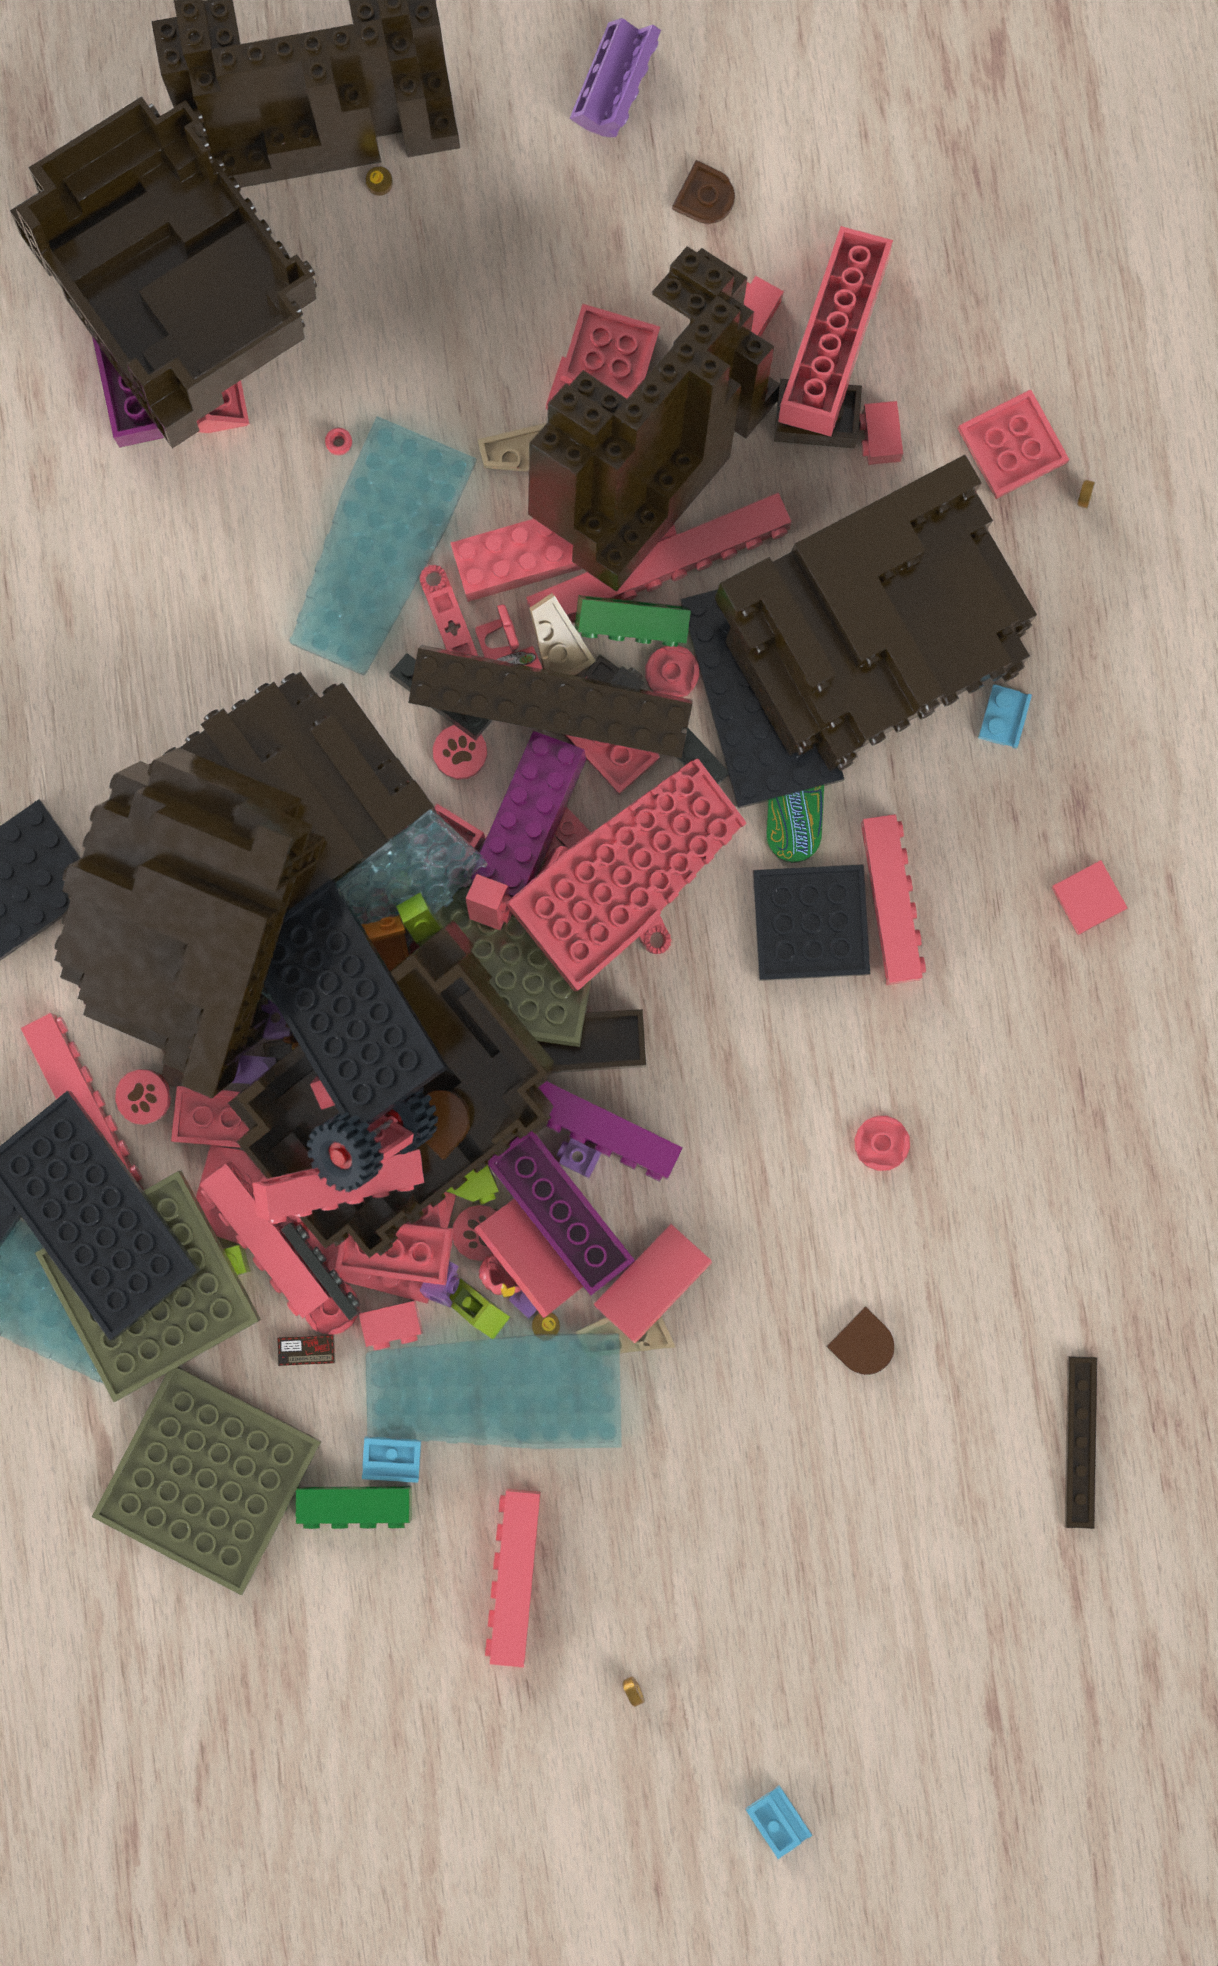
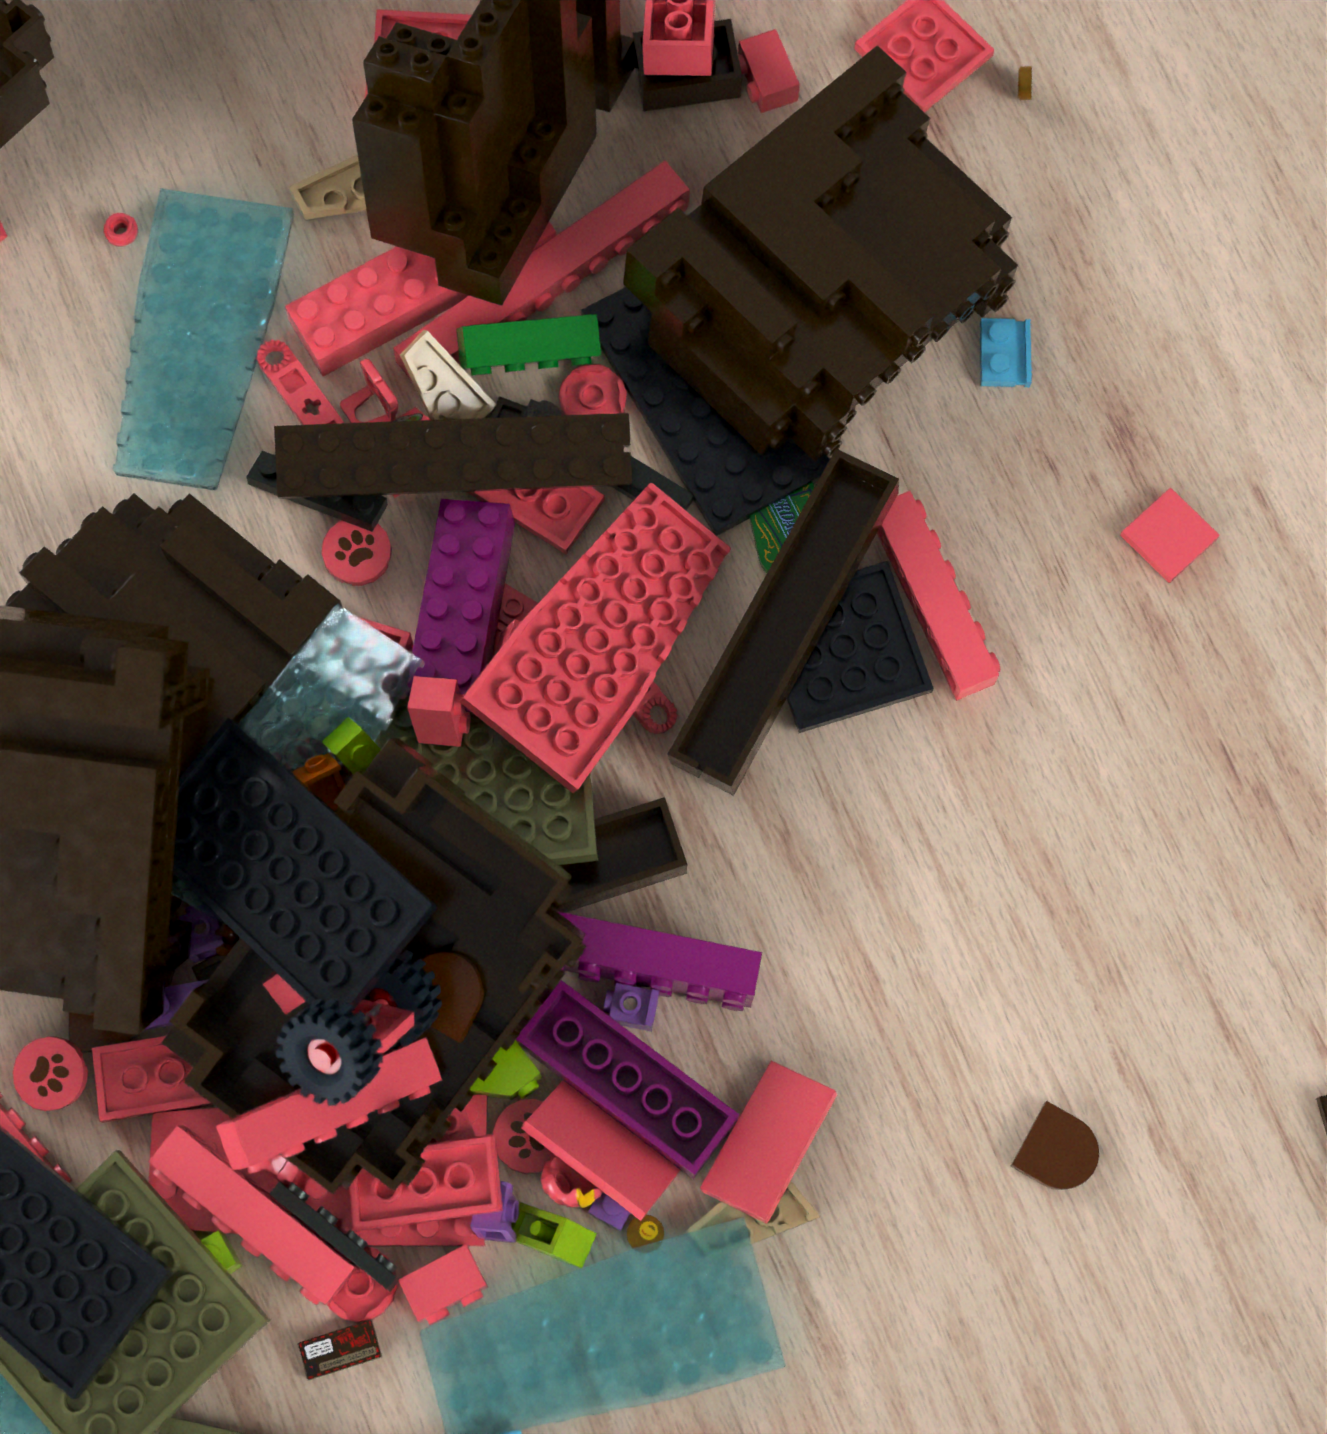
camera: 20 degrees left, 10 degrees down
(770, 895) = (784, 622): none -> dark brown piece
(882, 1143) = (1006, 892): coral tile -> none

